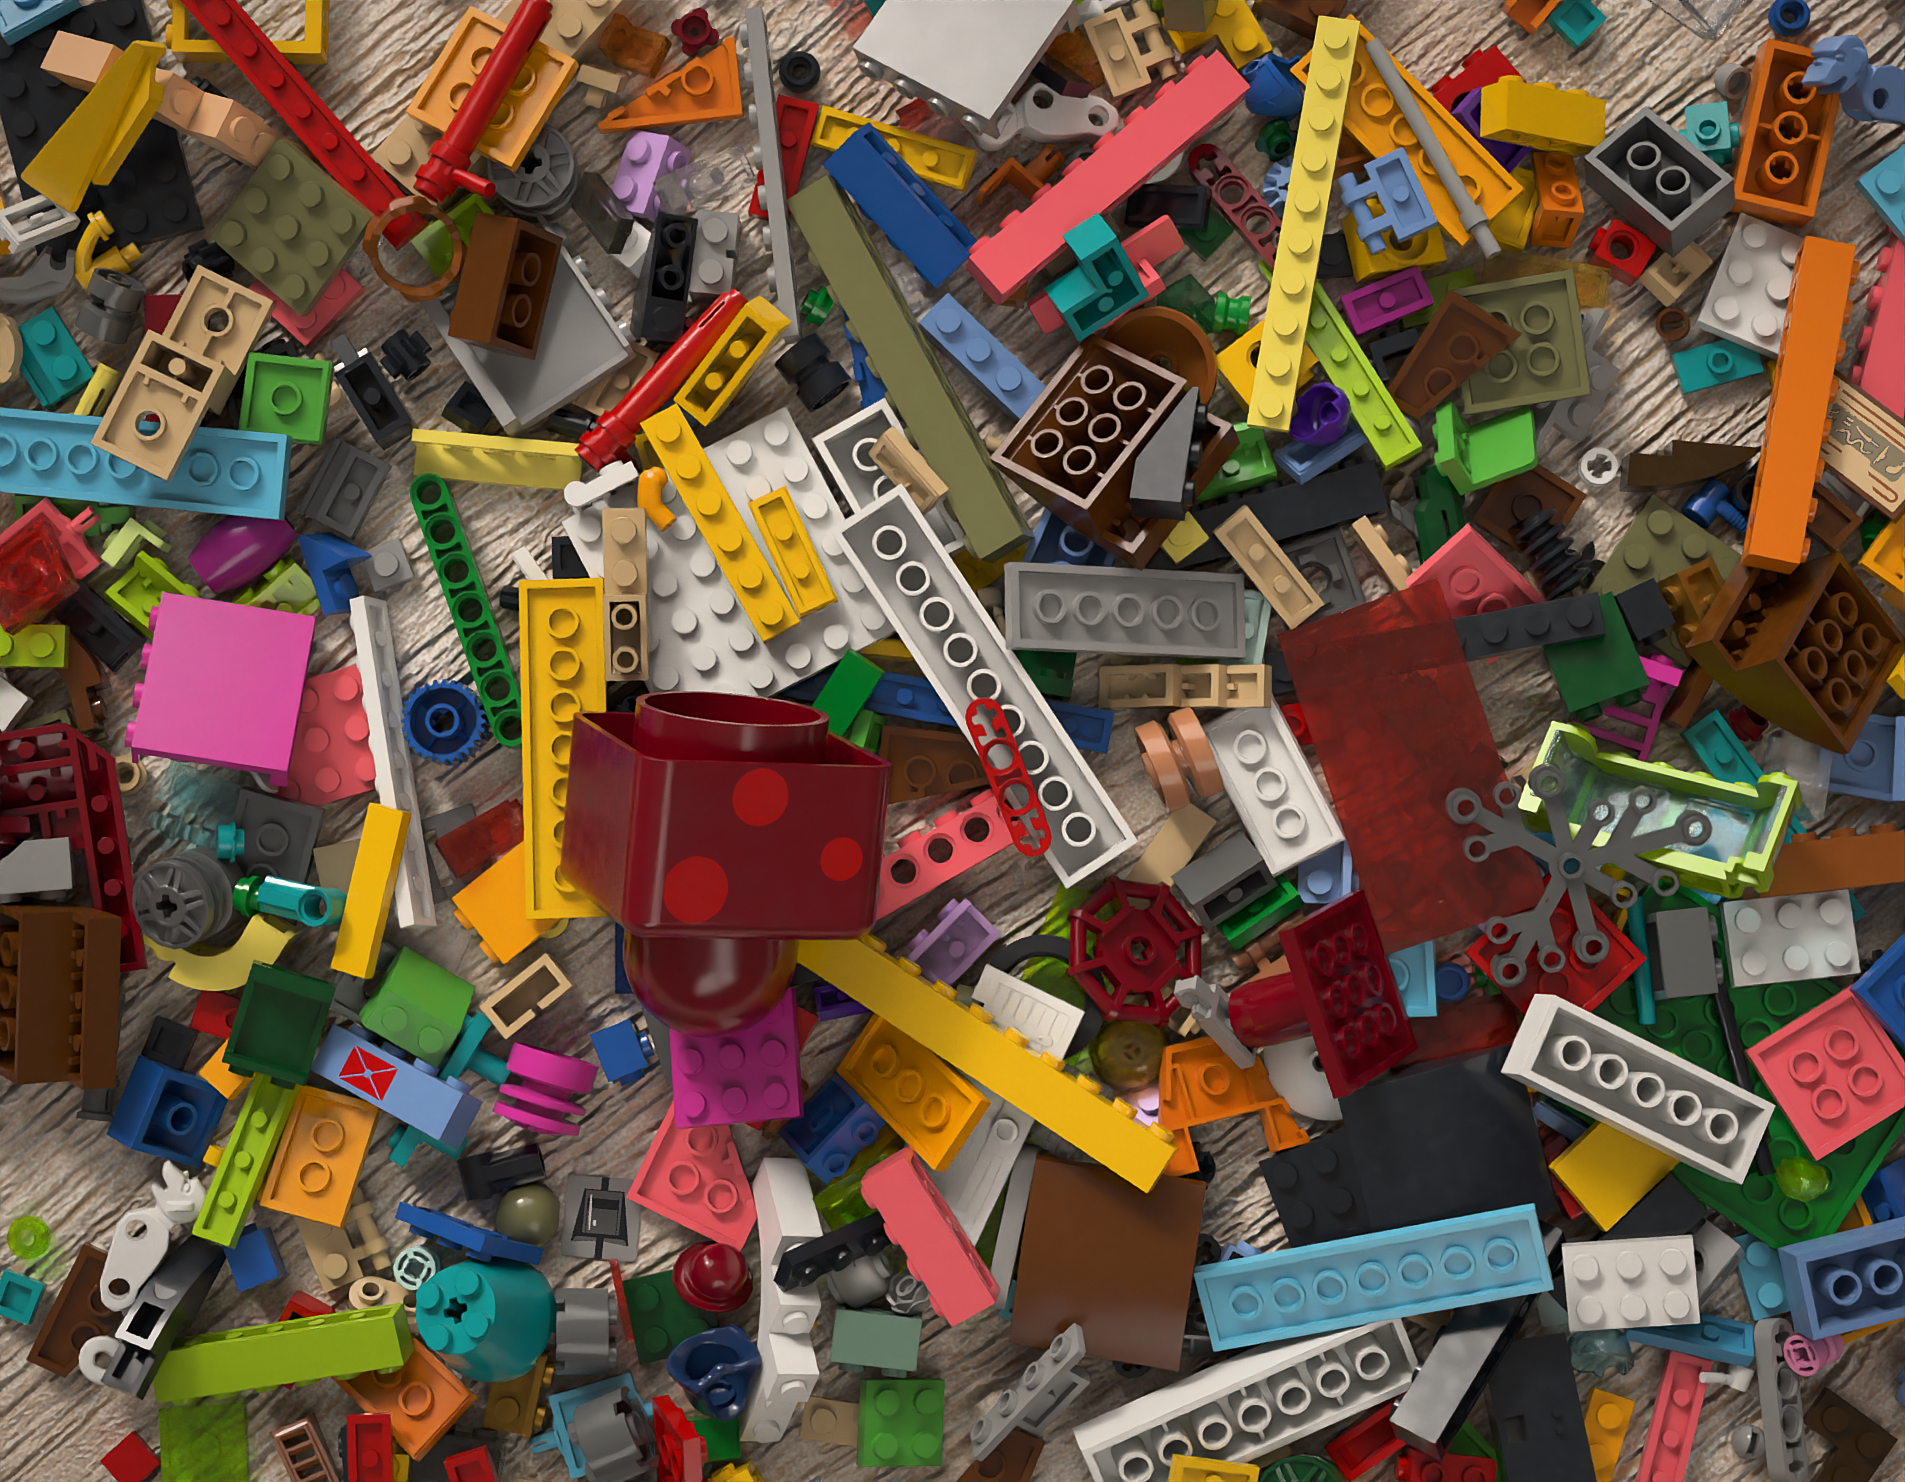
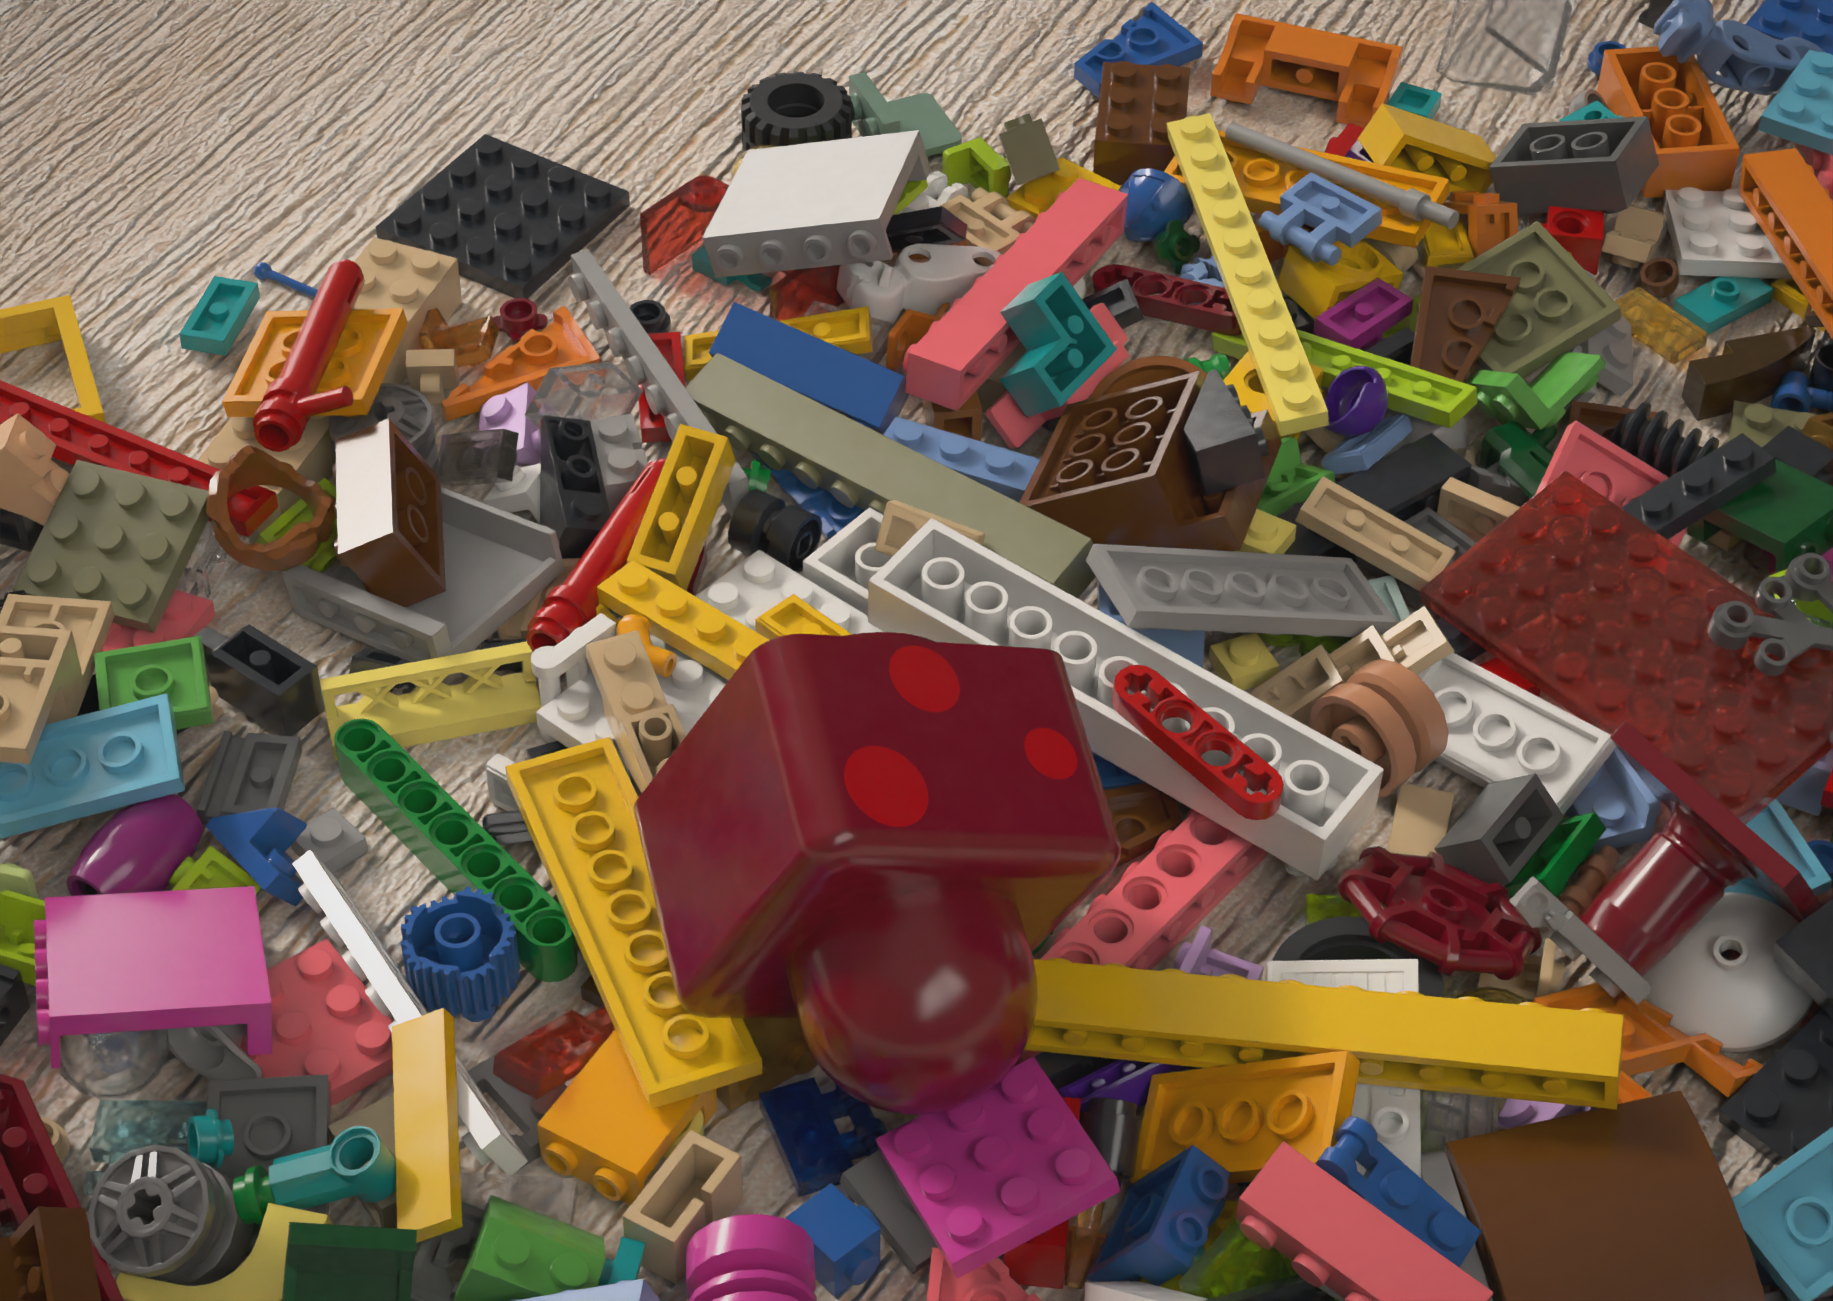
camera: 20 degrees left, 40 degrees down
(405, 355) = (292, 630): black gear -> none
(829, 1044) = (1114, 1133): none -> black brick
(972, 1207) = (1397, 1190): none -> blue plate
(1207, 242) = (1147, 336): dark green plate -> none
(1609, 459) = (1665, 396): white bush -> none
(1643, 374) = (1660, 326): none -> clear yellow plate

